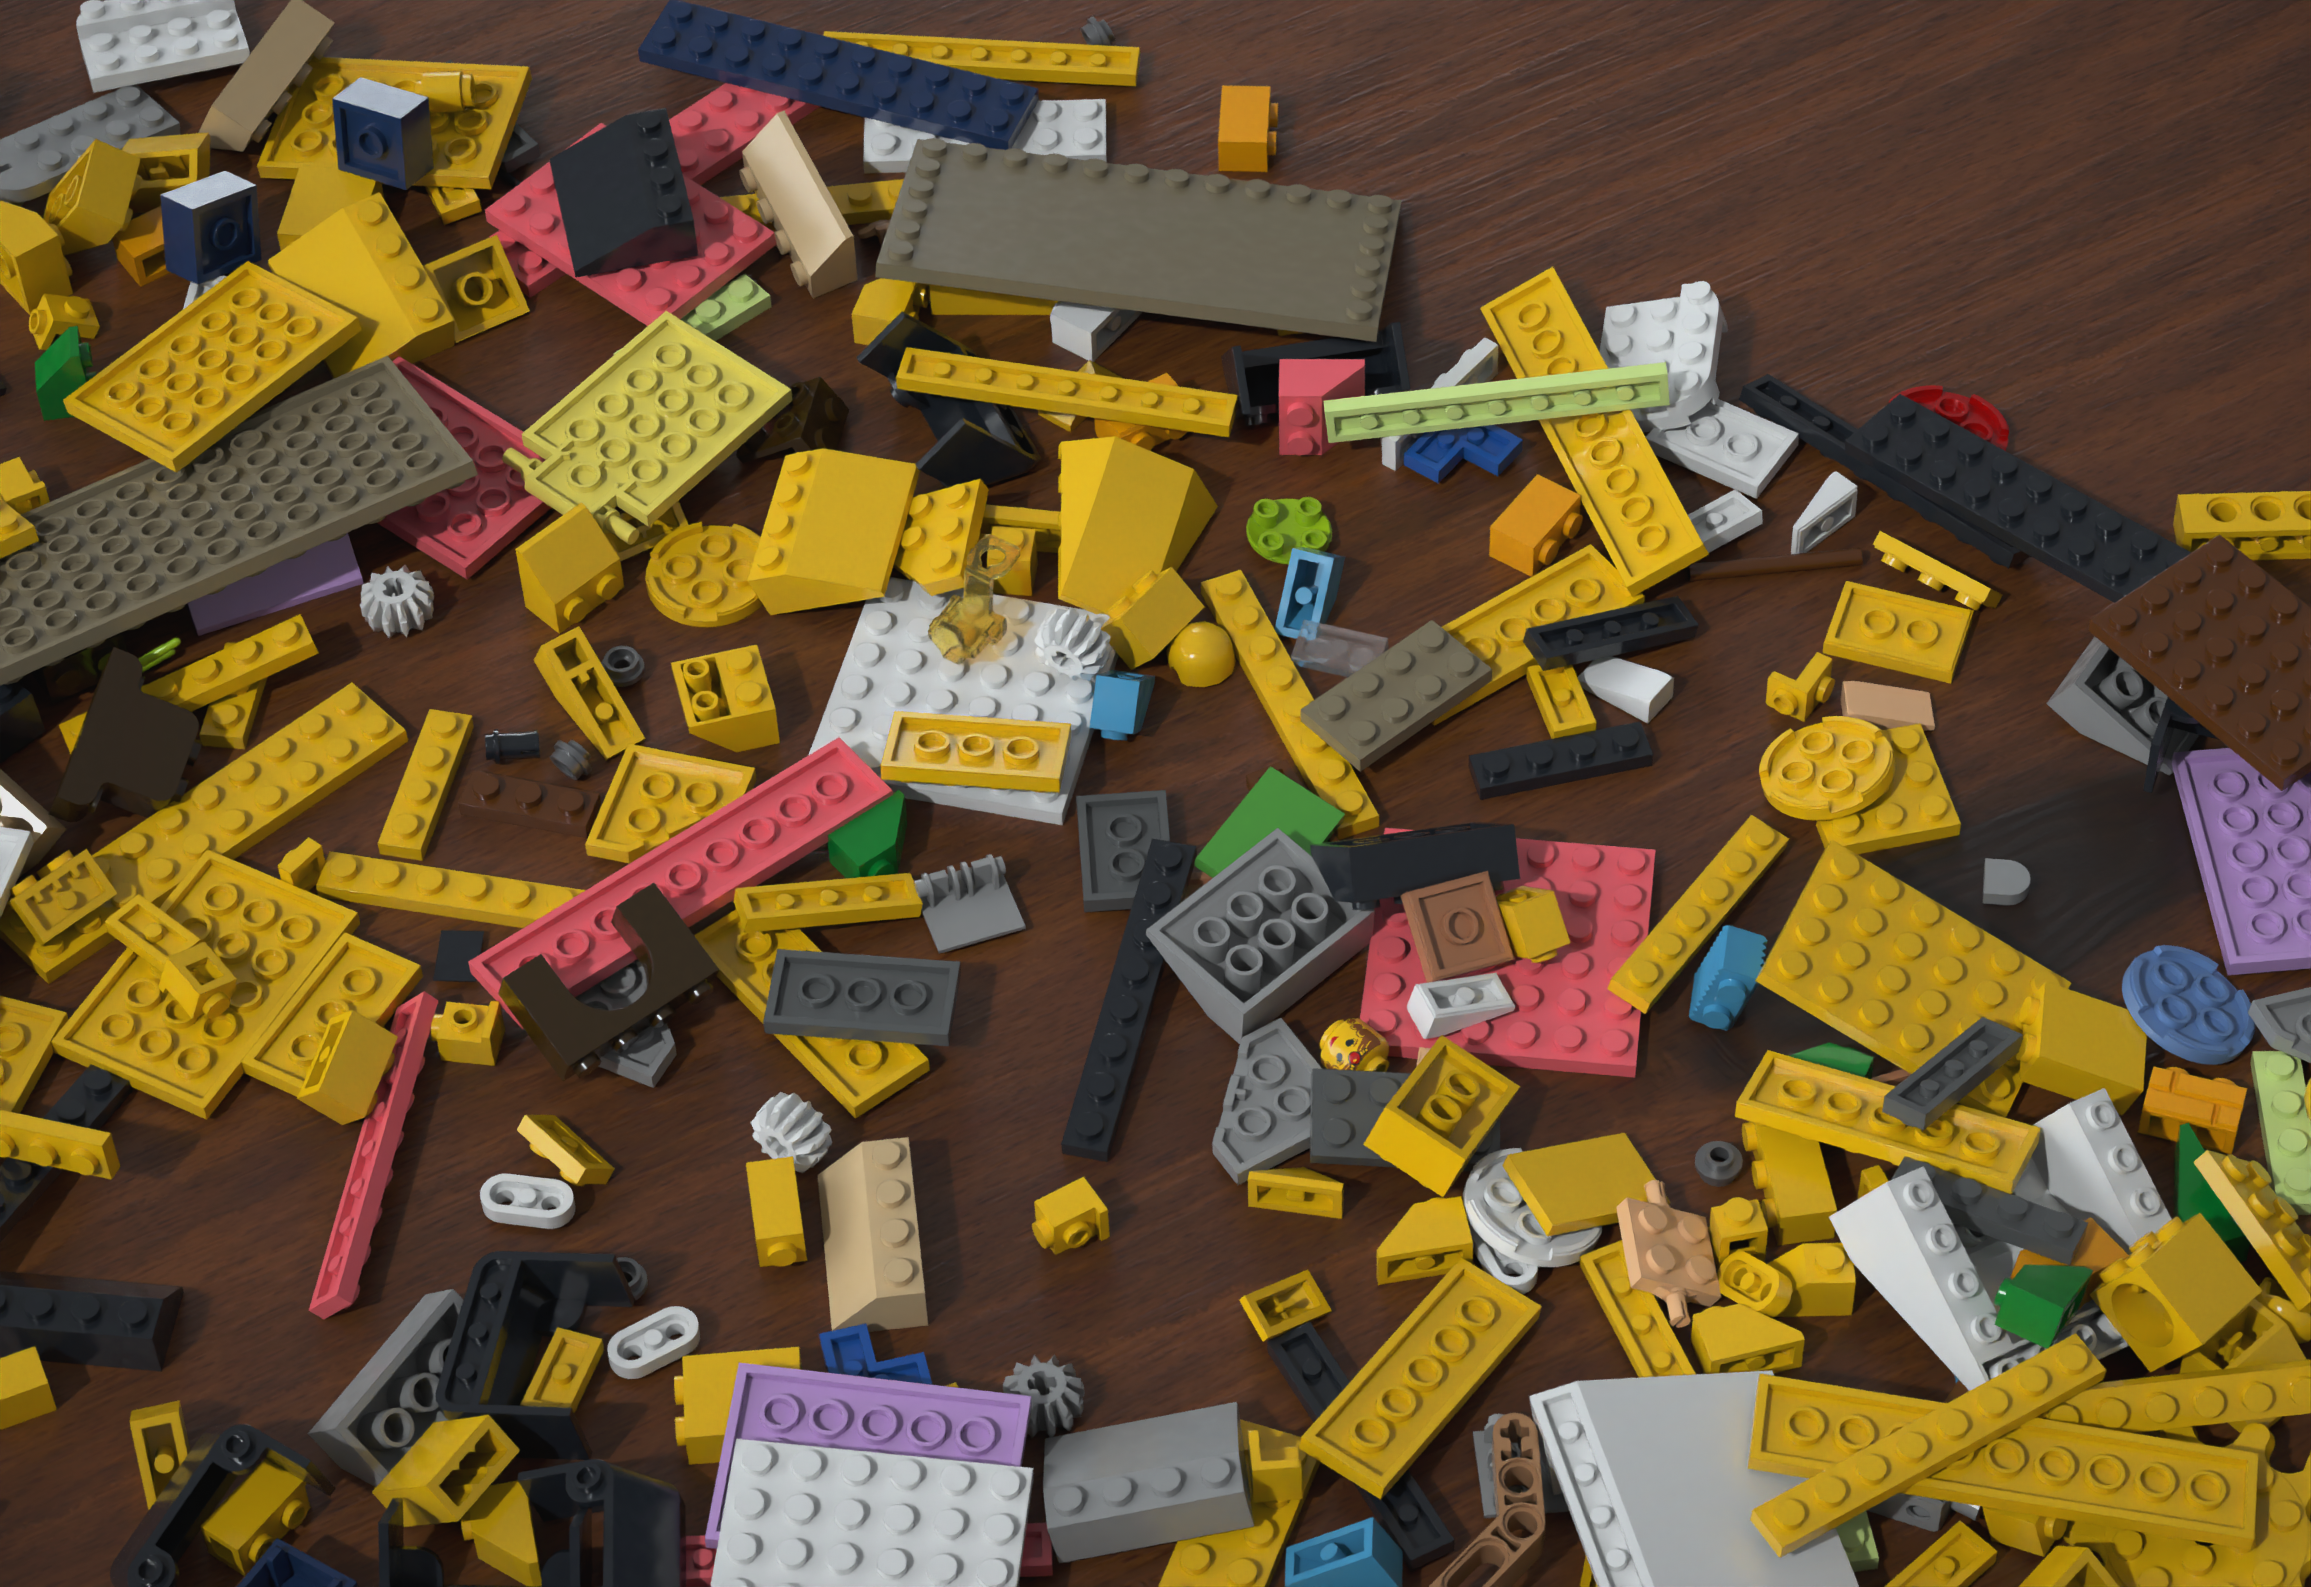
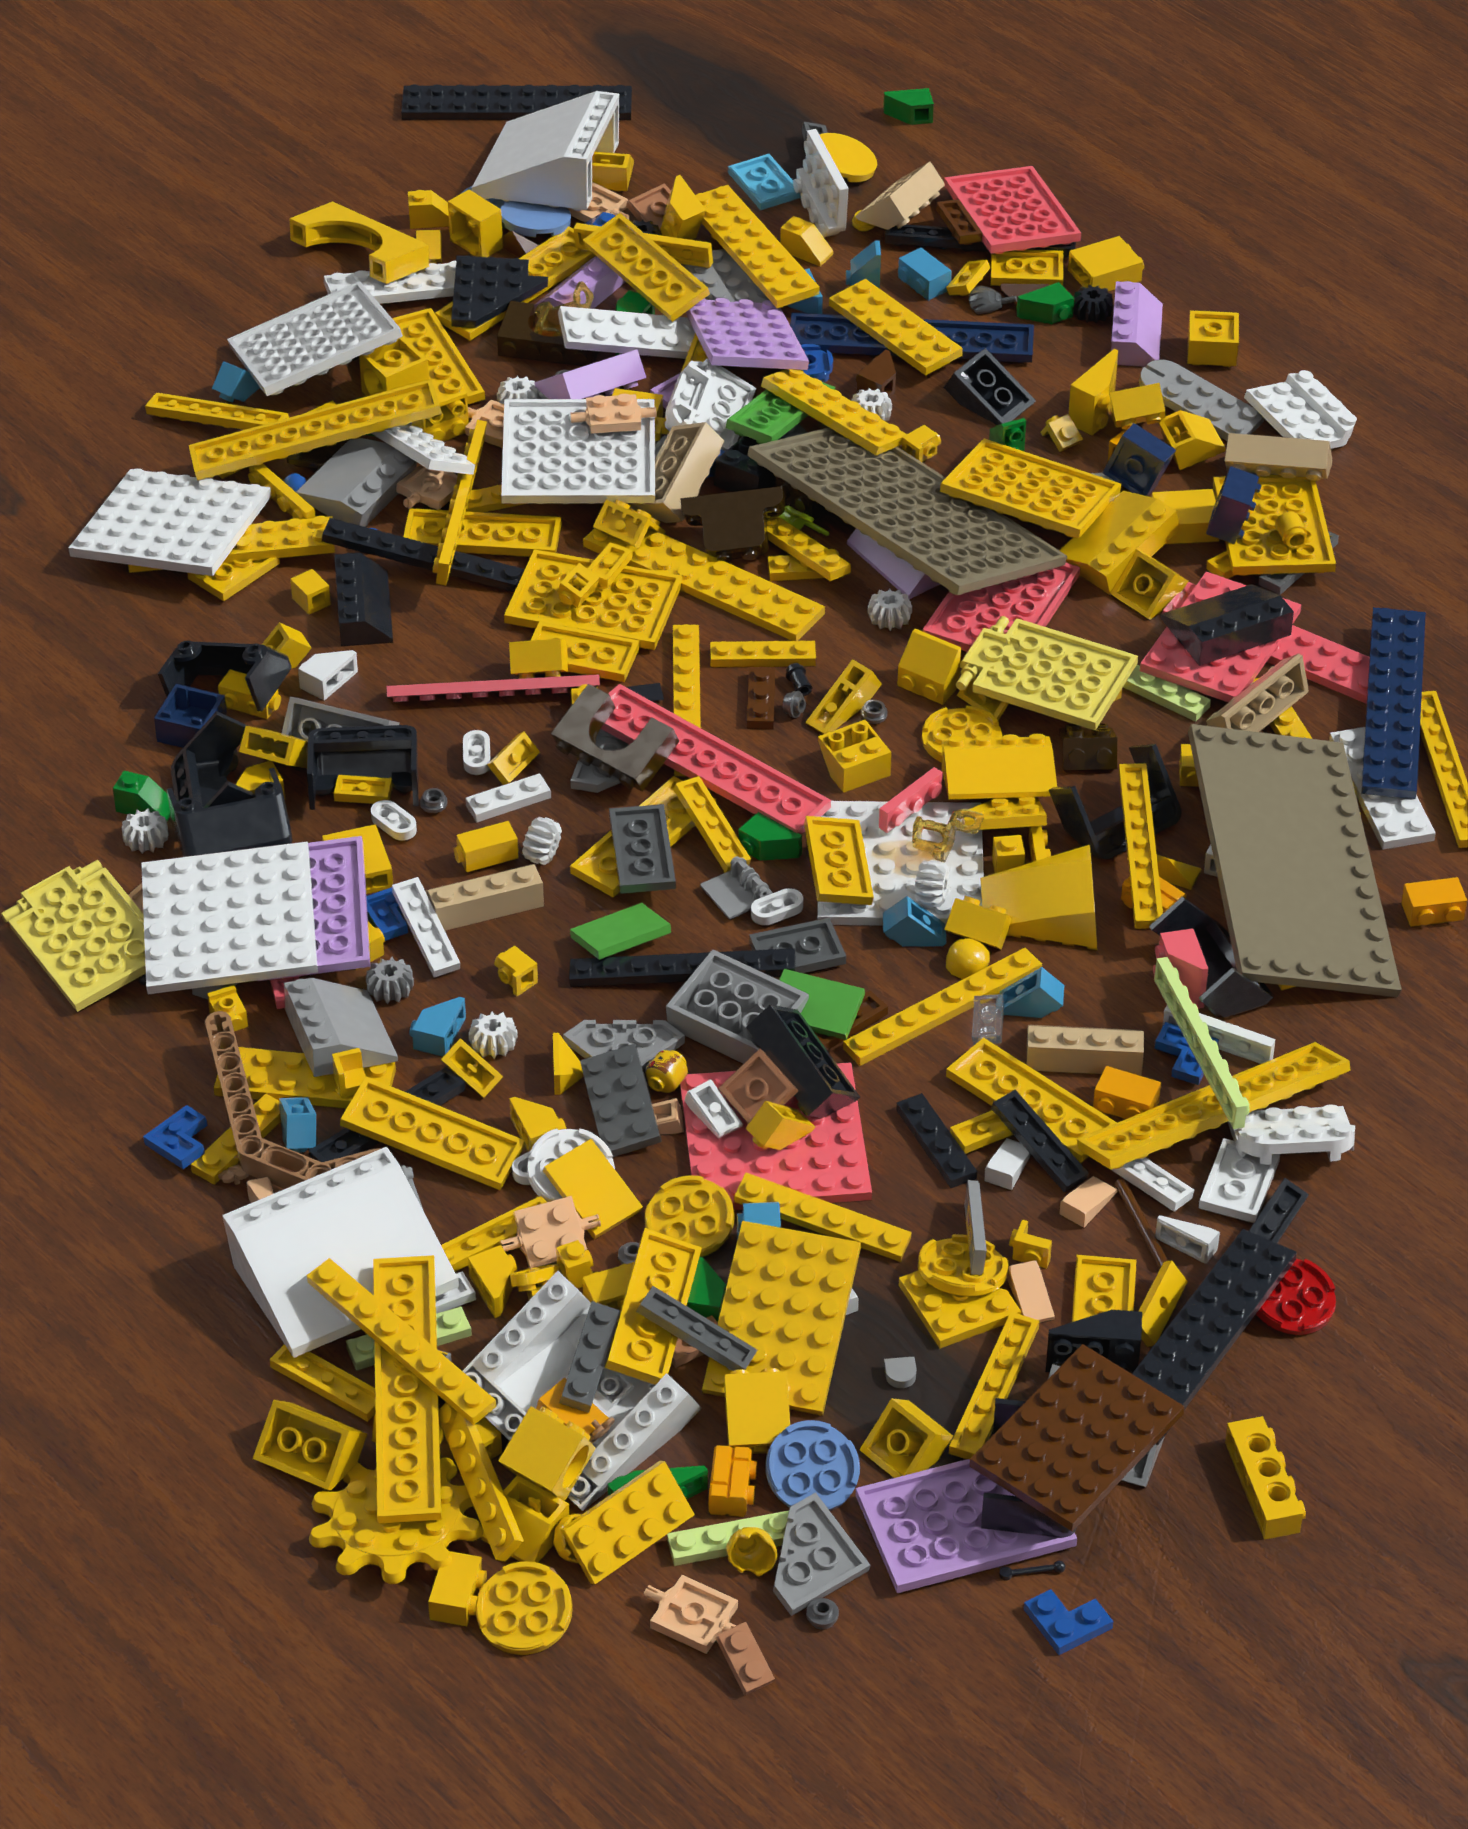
camera: 75 degrees right, 5 degrees down
(247, 1388) = (327, 672): none -> white slope
(303, 865) = (680, 614): yellow plate -> none
(646, 1177) = (508, 797): none -> white plate
(660, 797) = (776, 744): yellow plate -> none
(870, 642) = (910, 800): none -> coral plate
(941, 1323) = (426, 927): none -> white plate
(1025, 1064) = (620, 931): none -> bright green tile
(1027, 862) = (777, 906): none -> white plate
(1173, 1342) = (438, 1026): none -> dark azure slope
(1209, 1270) = (493, 1034): none -> white gear
(1285, 525) = (1085, 981): lime dish -> none
(1396, 695) = (952, 1045): dark tan plate -> none
(1421, 551) = (1084, 1049): none -> tan slope
(1441, 1115) = (614, 1104): yellow slope -> none
(1664, 1075) = (692, 1212): none -> yellow tile
(1722, 613) = (1086, 1201): none -> light nougat slope
(1773, 732) = (975, 1227): none -> light grey tile
(2025, 631) = (1109, 1333): none -> black slope
(2041, 1301) = (516, 1382): green slope -> none
(2057, 779) = (994, 1383): none -> yellow plate
(2120, 1224) = (601, 1429): none -> medium nougat plant
(2148, 893) = (905, 1439): none -> yellow slope

